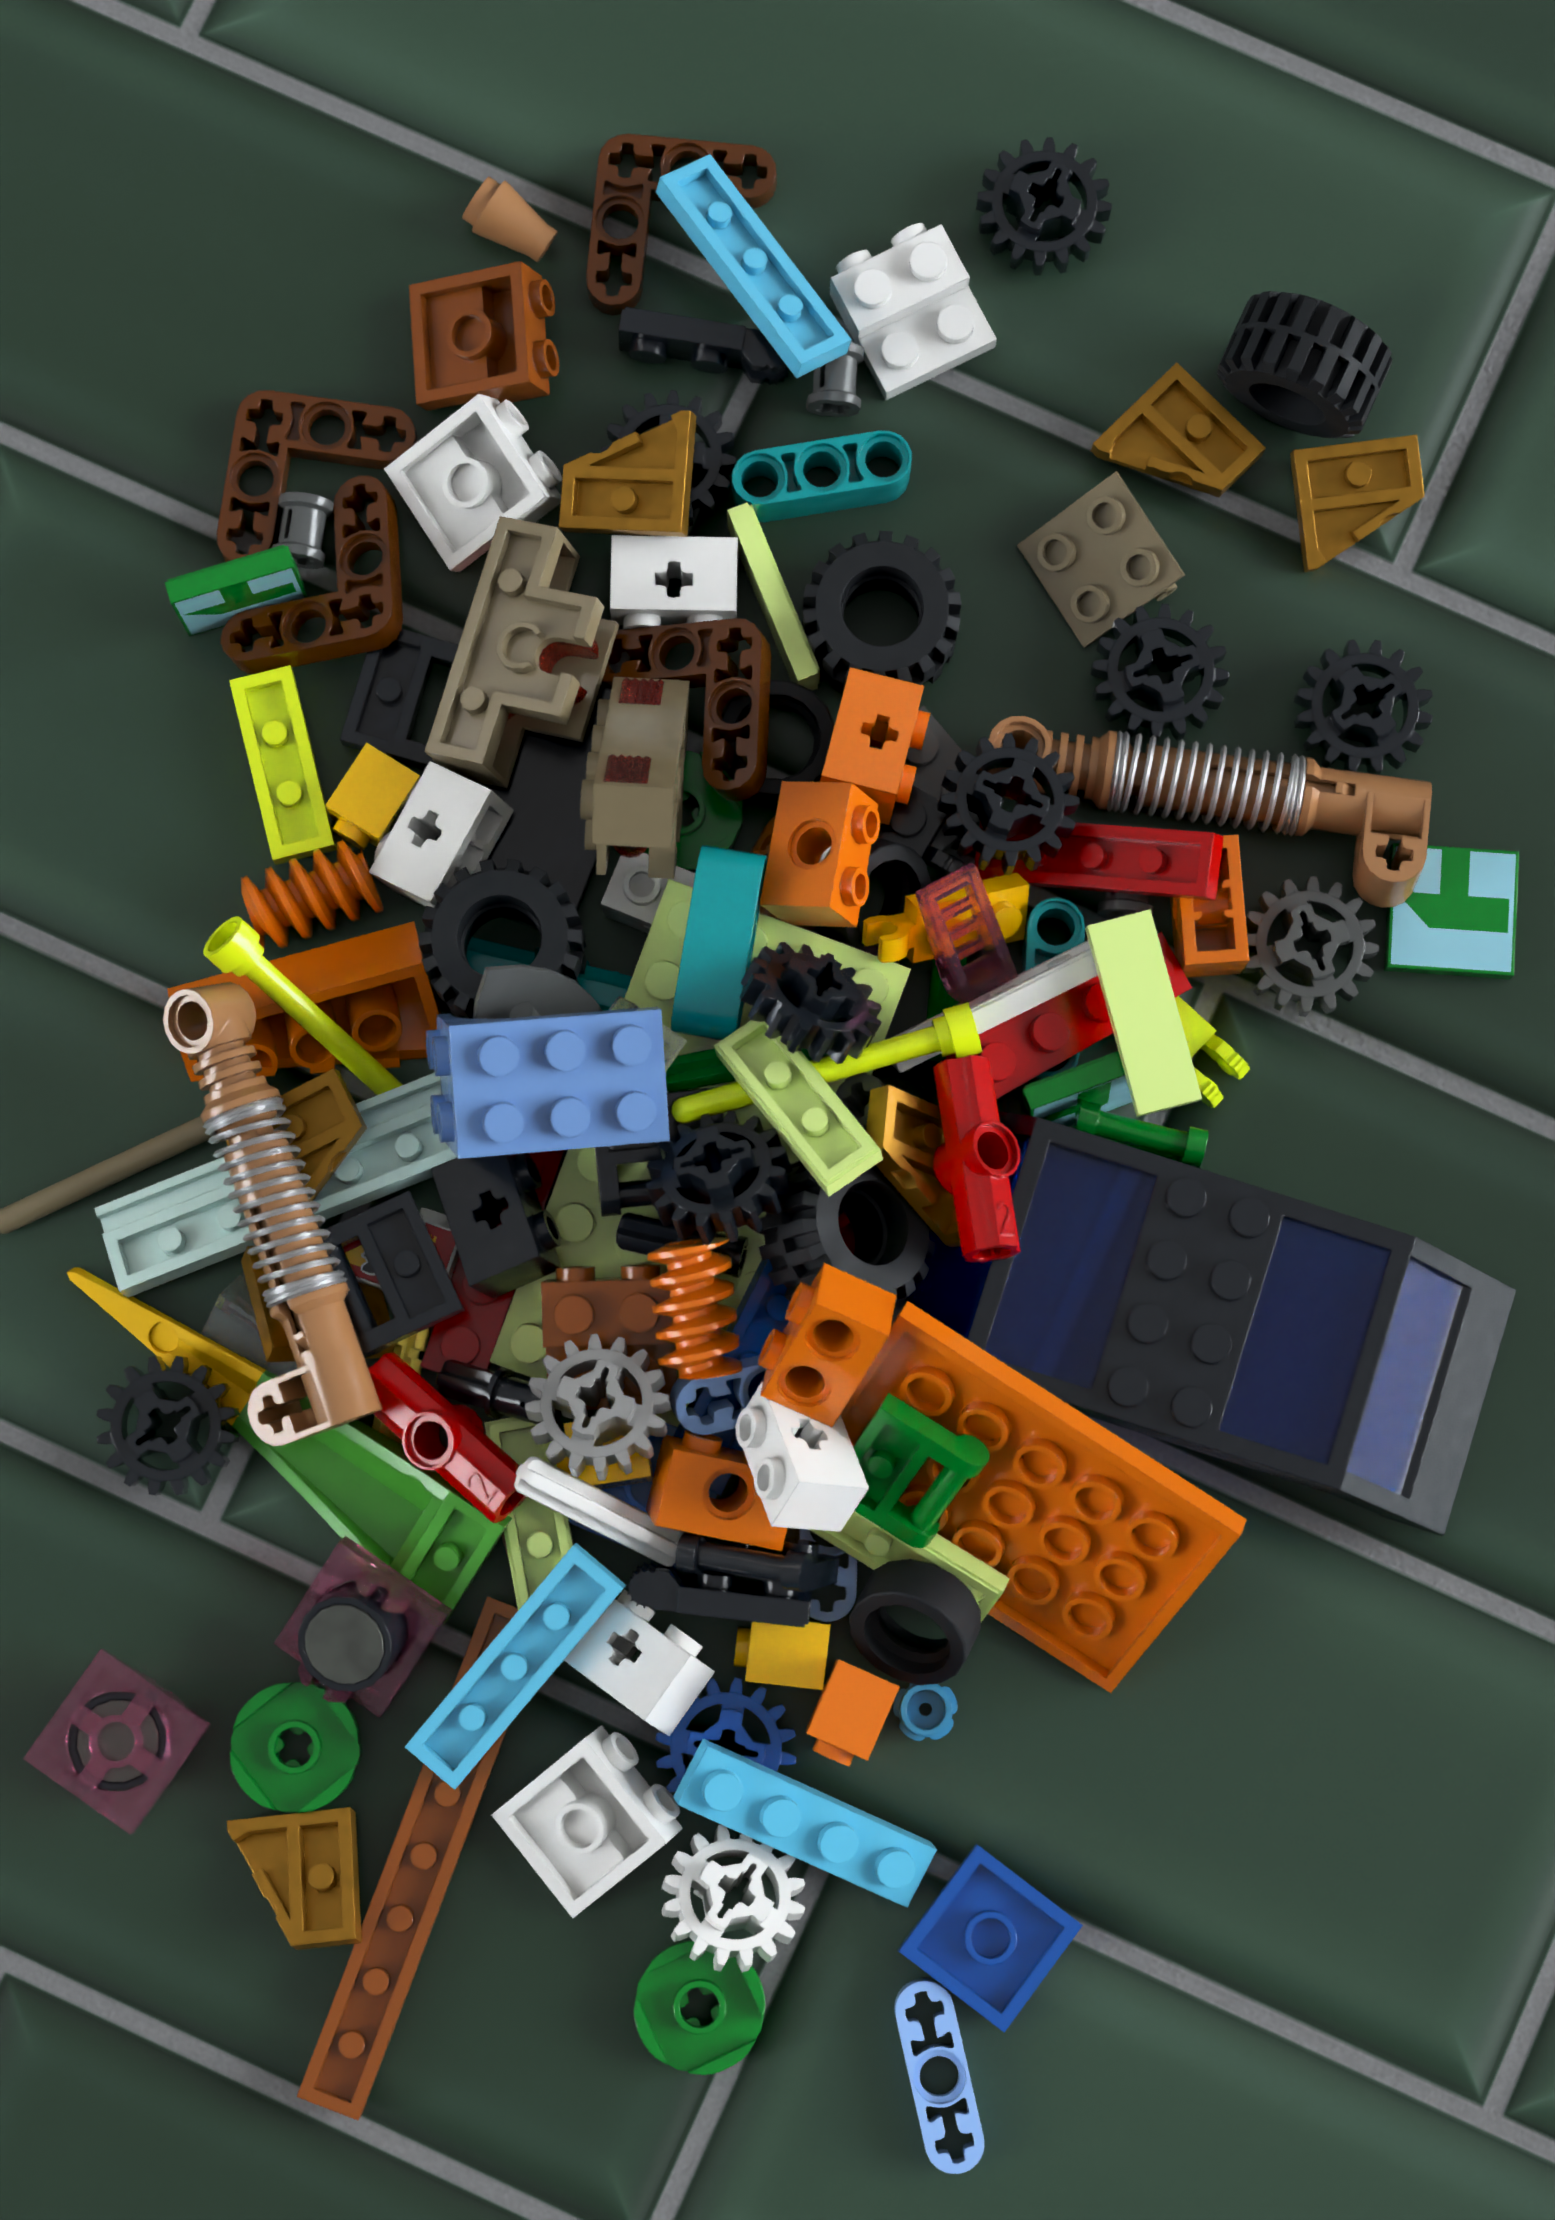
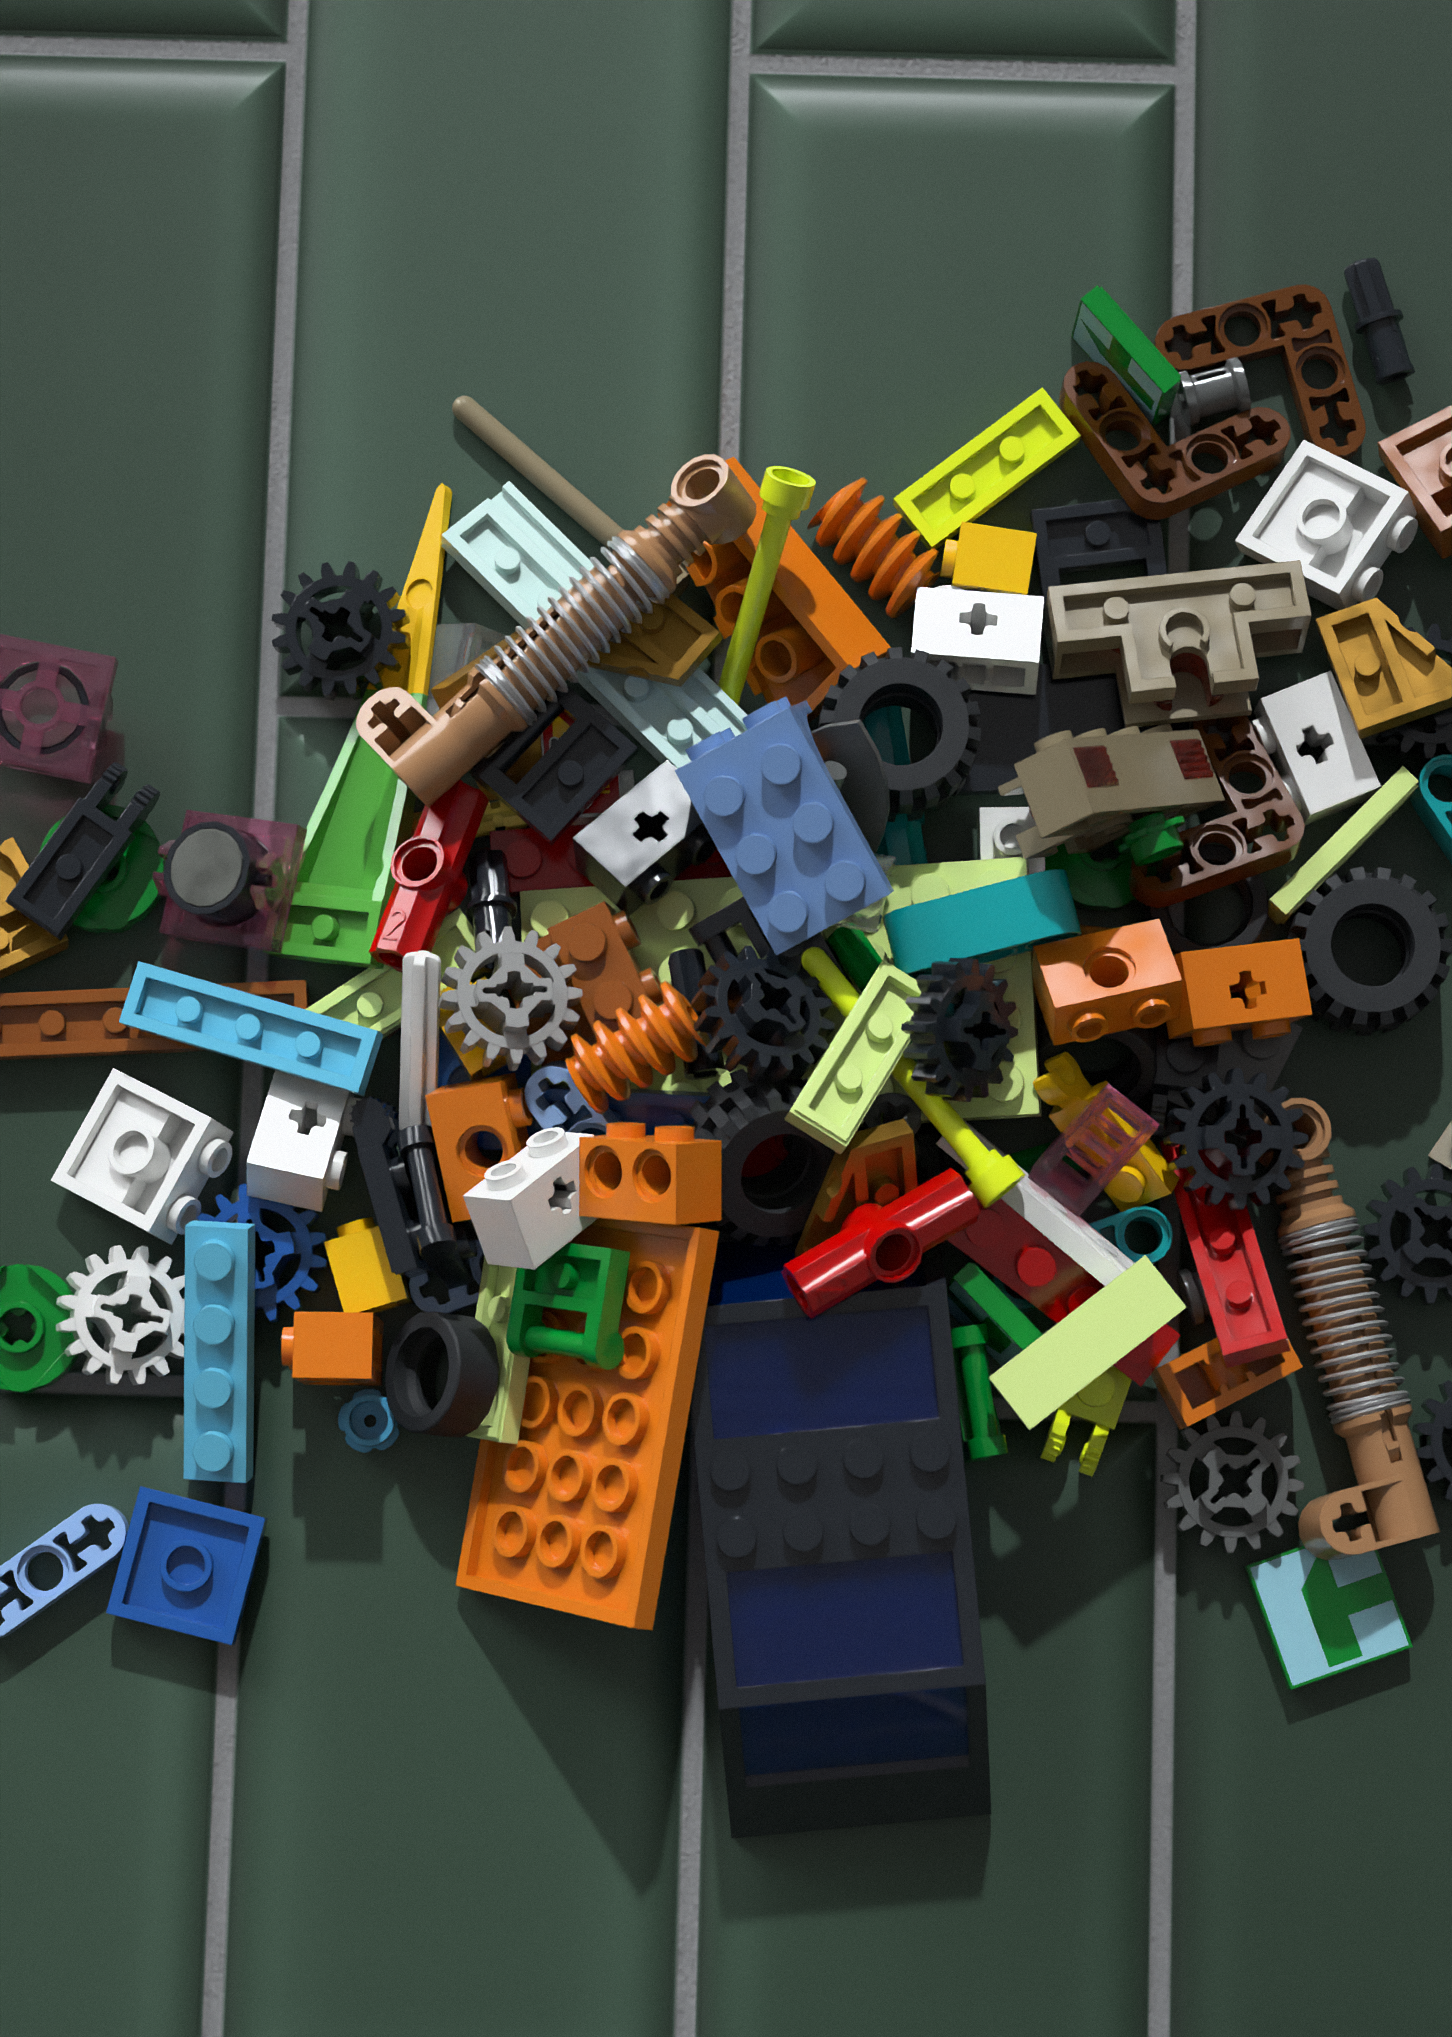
camera: 70 degrees right, 0 degrees up
(277, 1762) = (80, 854): none -> black hinge
(302, 355) = (1378, 321): none -> black axle
(703, 756) = (1153, 838): none -> green plate

